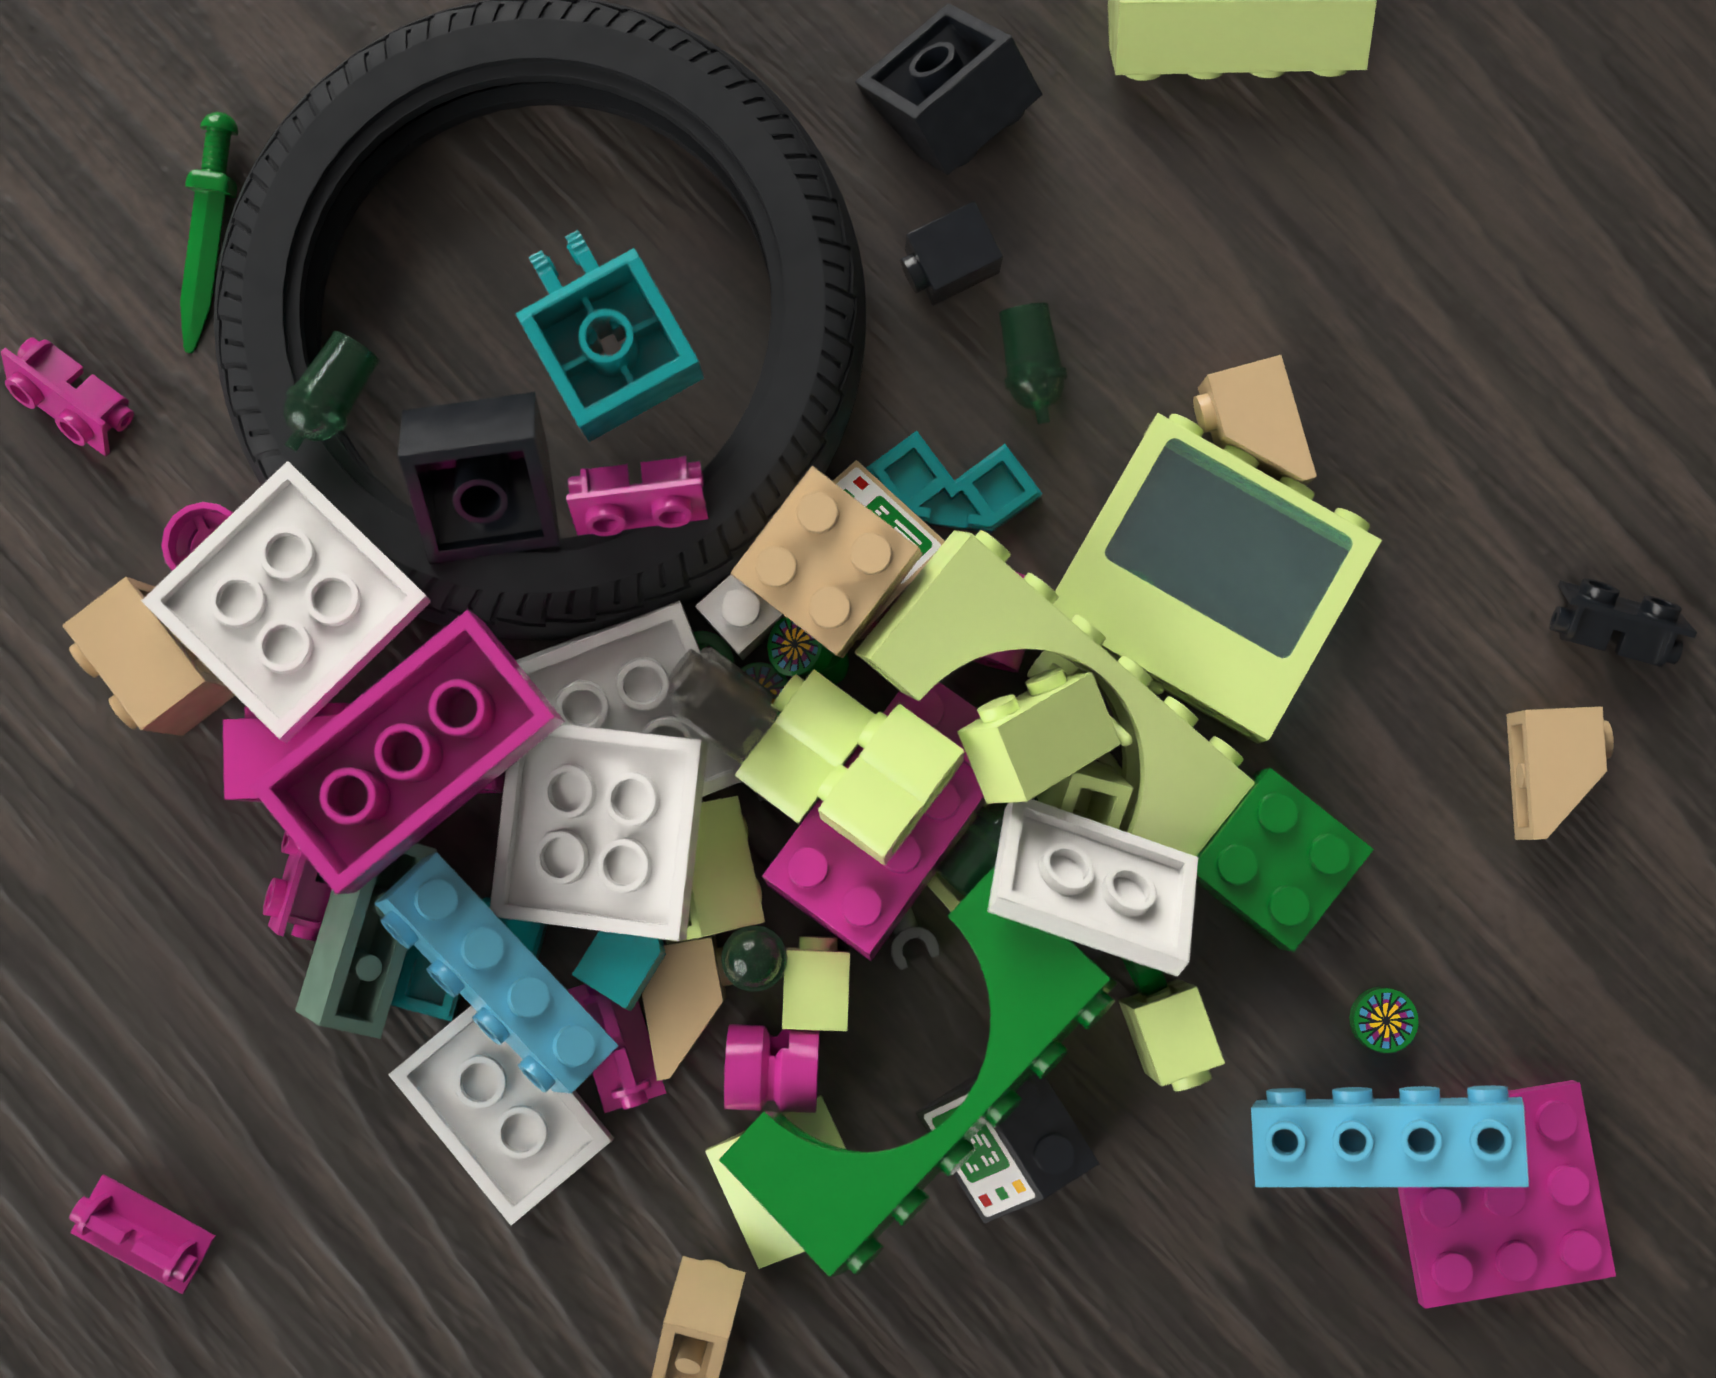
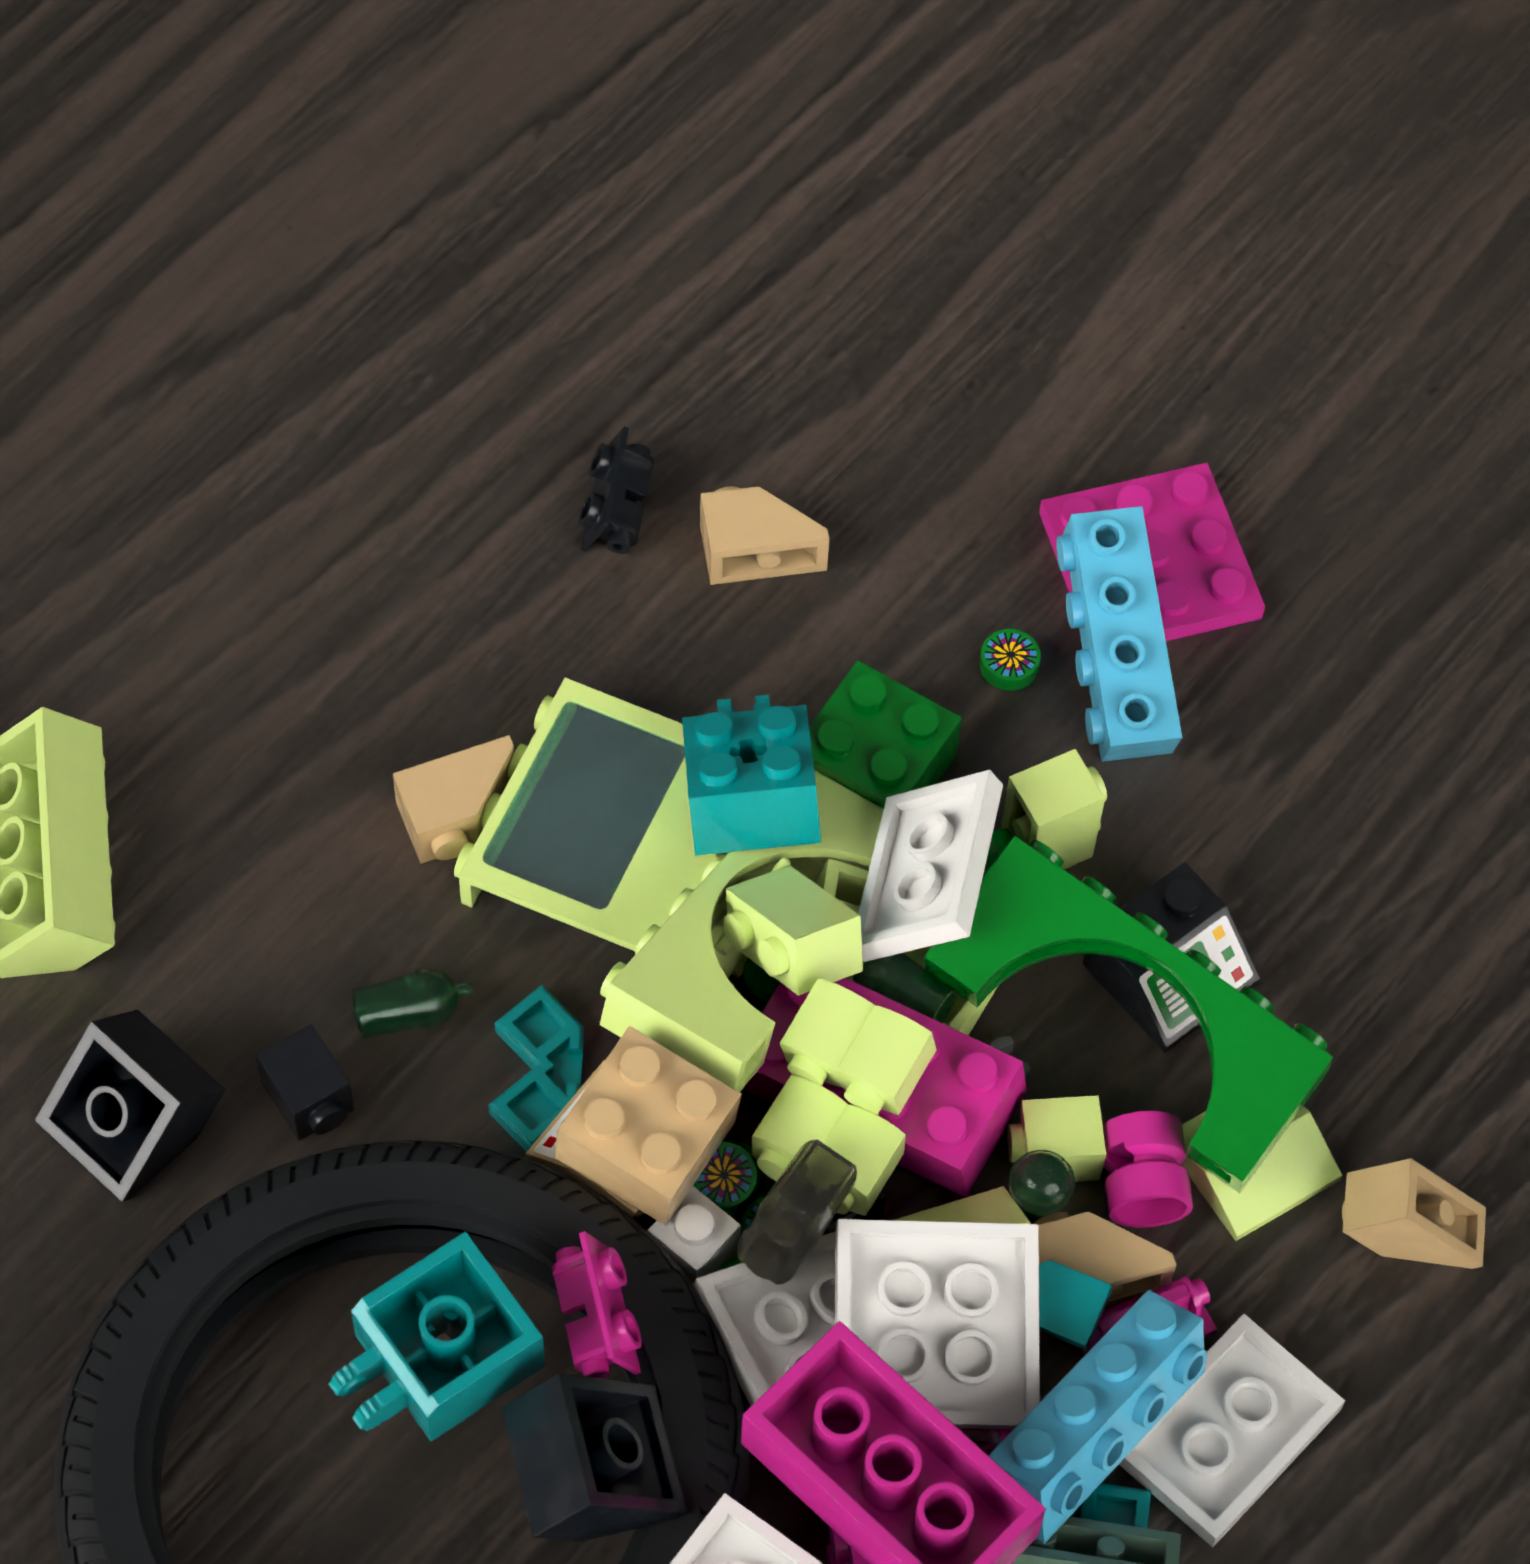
camera: 100 degrees left, 25 degrees down
(1224, 712) = (751, 778): none -> teal hinge

